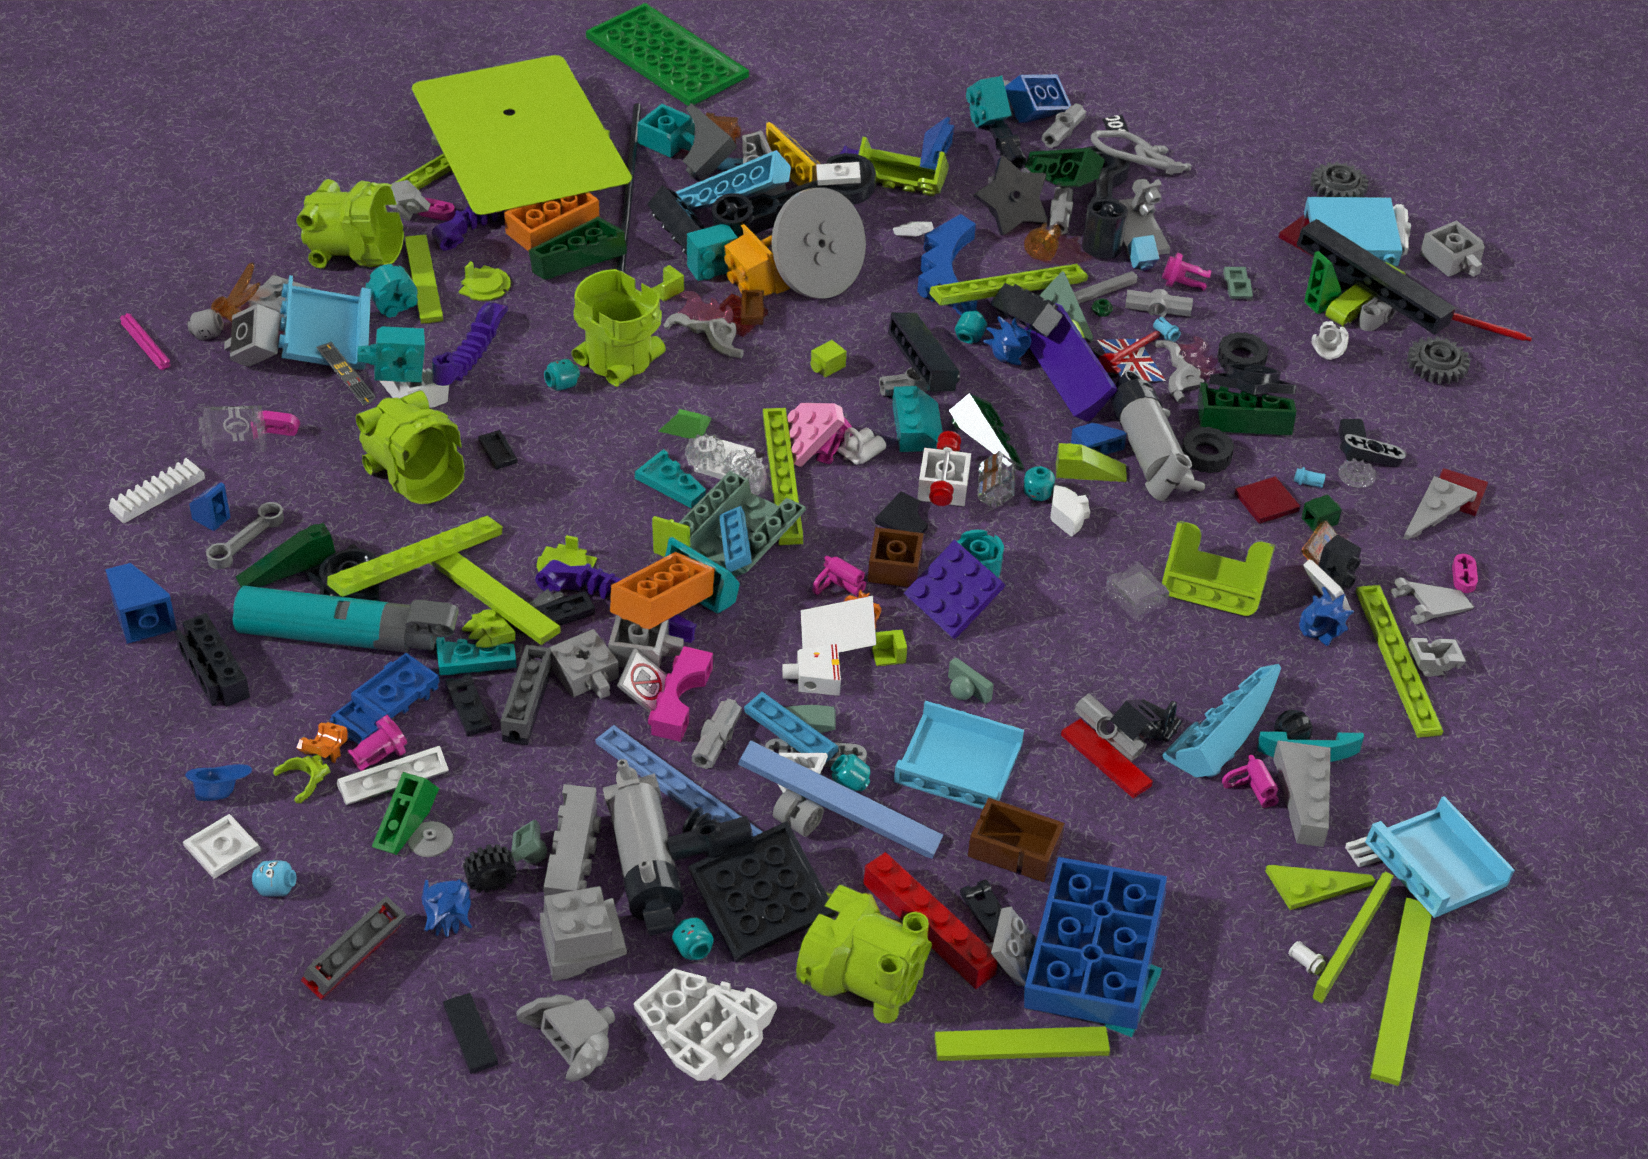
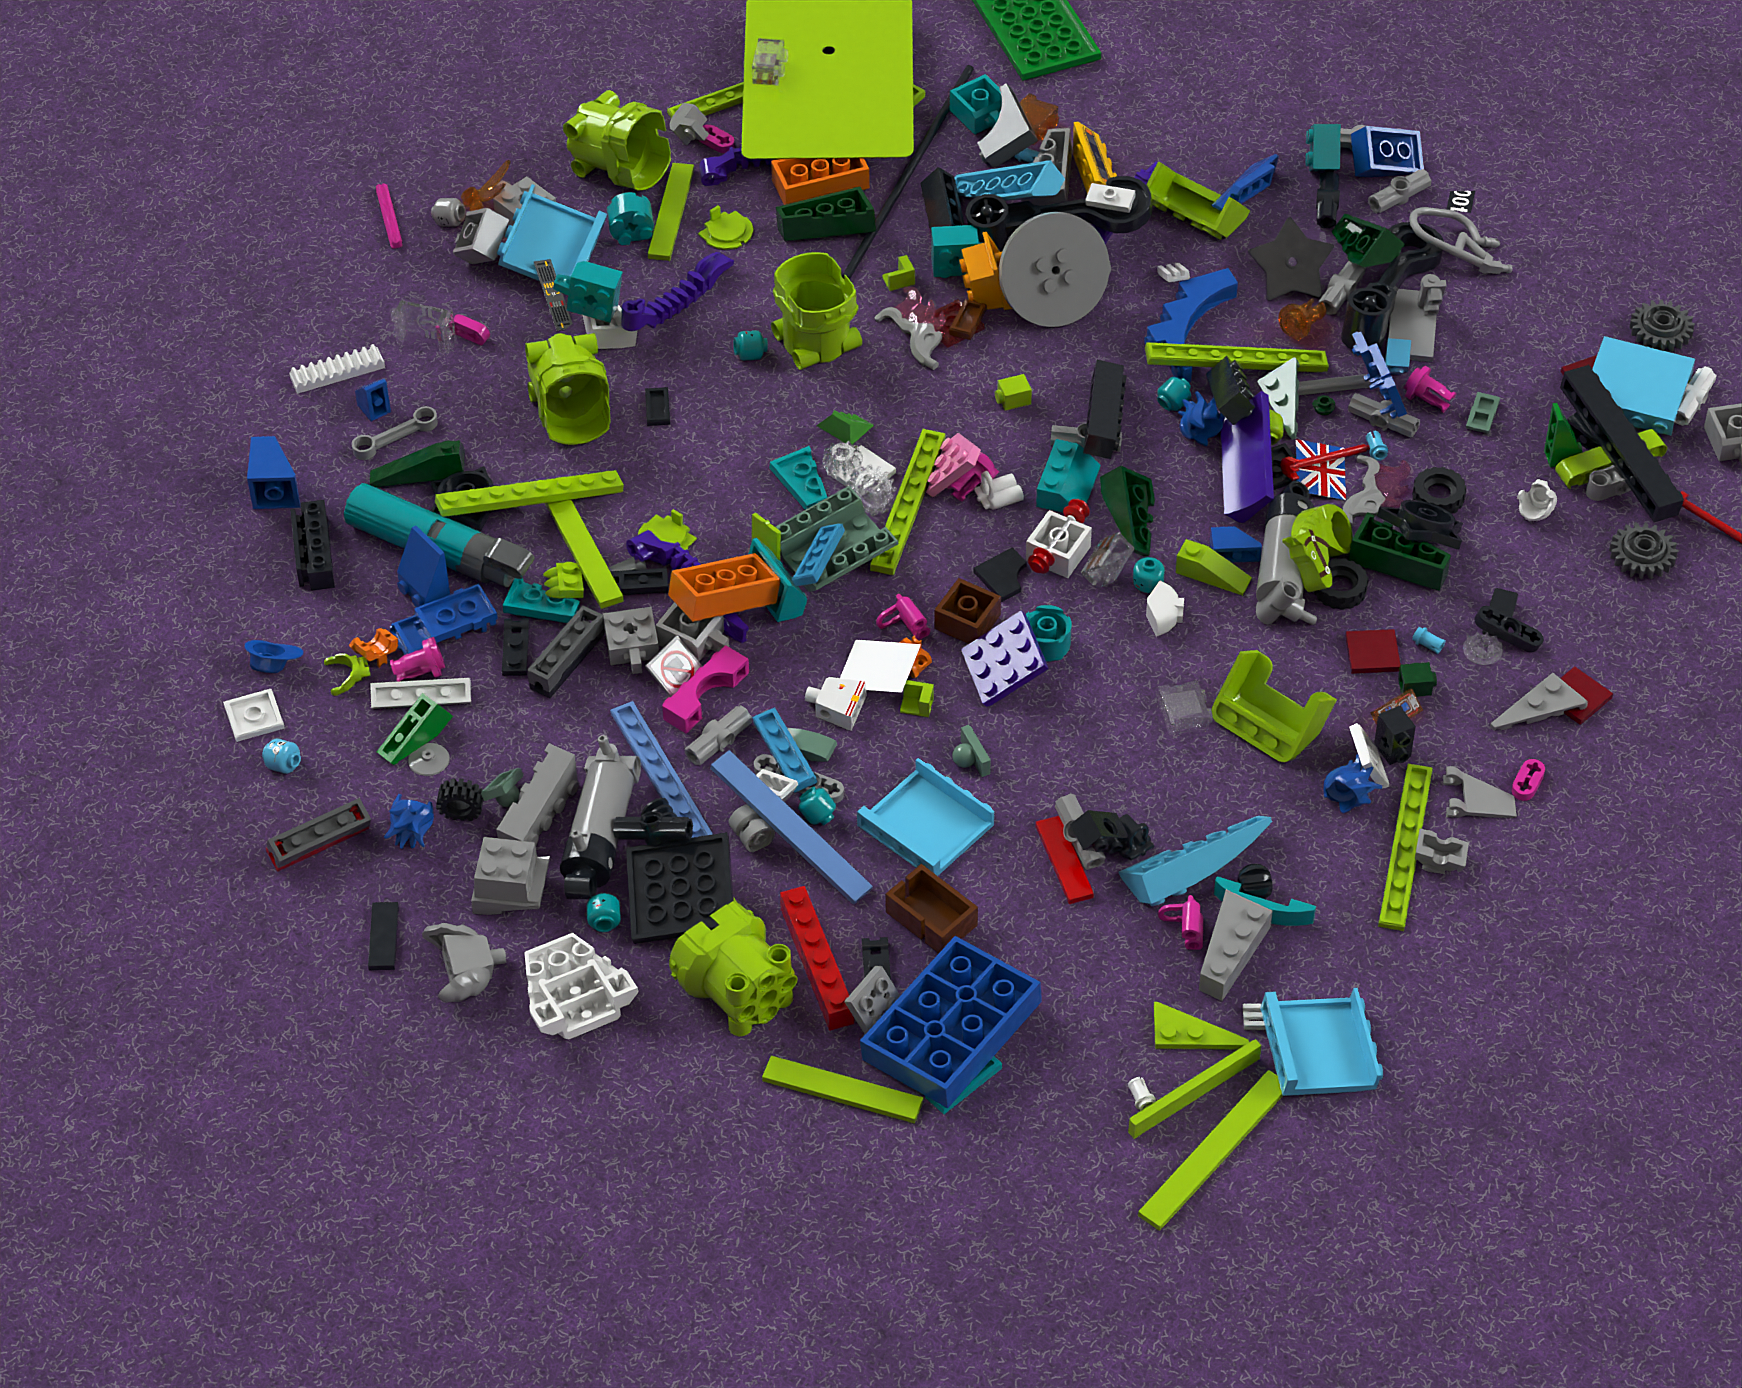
camera: 25 degrees right, 5 degrees up
(345, 652) = (422, 570): none -> blue slope
(462, 130) = (769, 61): none -> clear brick
(1139, 259) = (1379, 375): none -> blue piece
(1181, 418) = (1316, 538): none -> lime animal

